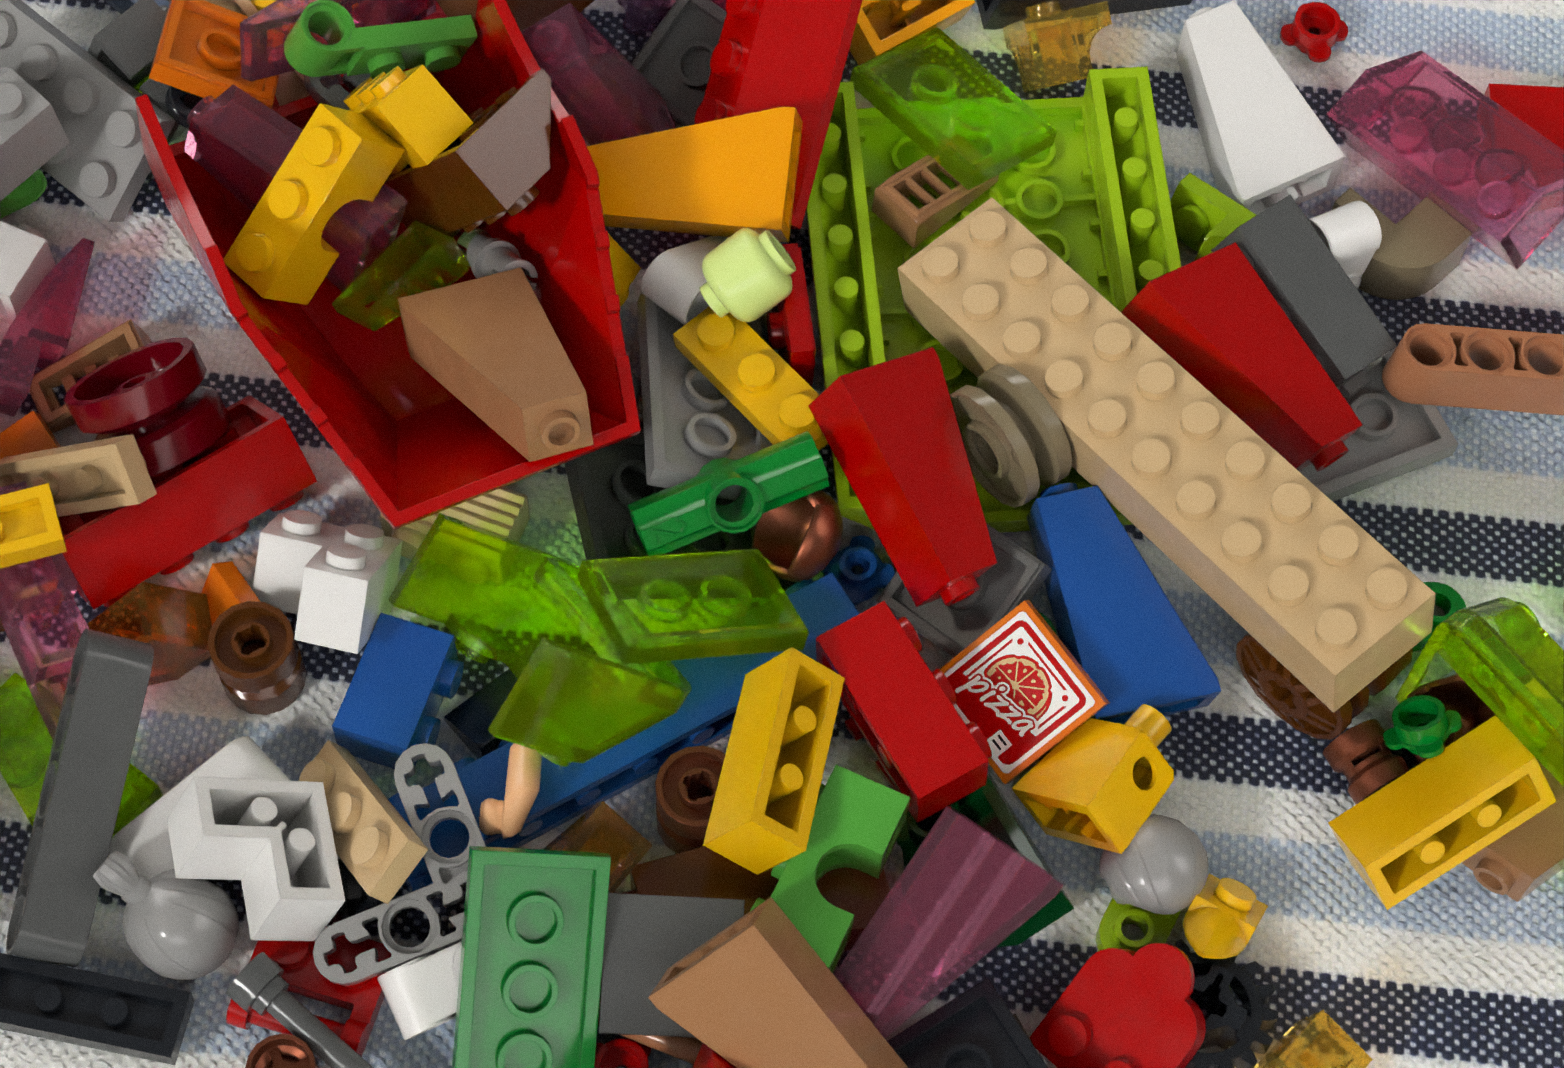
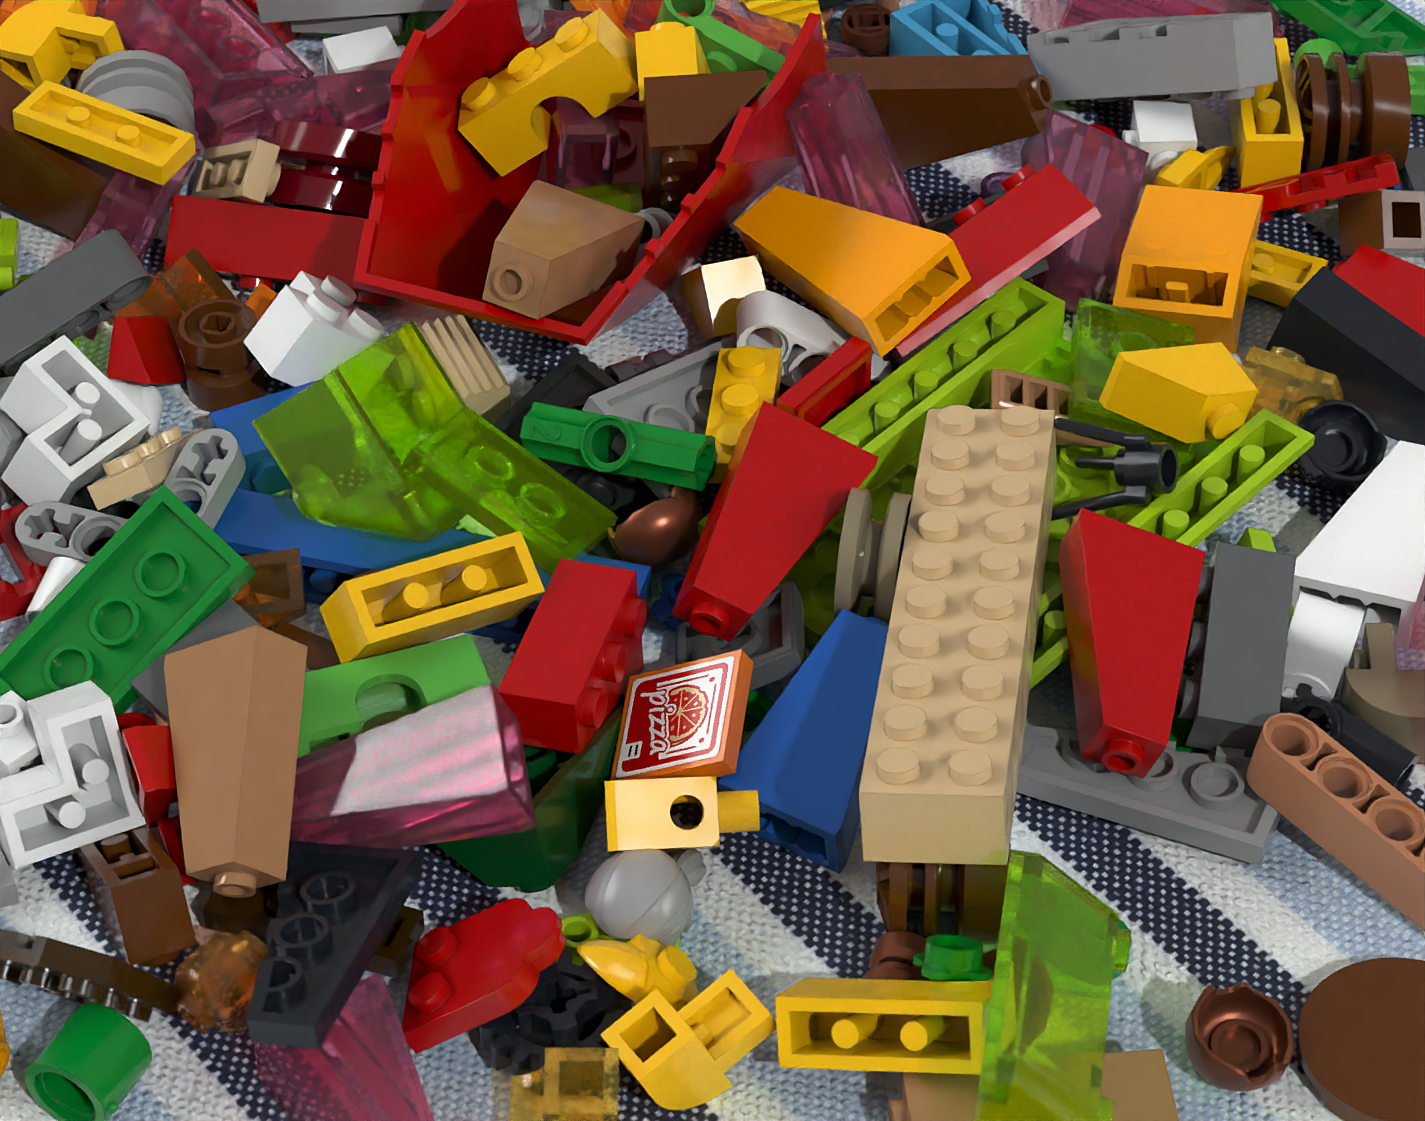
camera: 50 degrees right, 20 degrees down
(208, 715) = (144, 351): none -> red slope
(521, 790) = (255, 519): light nougat arm -> none
(747, 275) = (797, 325): yellowish green head -> none
(1039, 101) = (1181, 391): none -> yellow slope
(1085, 194) = (1140, 466): none -> black plant
(1139, 43) = (1344, 446): none -> black hair
(1315, 951) = (686, 1052): none -> yellow brick
(1421, 303) = (1363, 740): none -> black piece

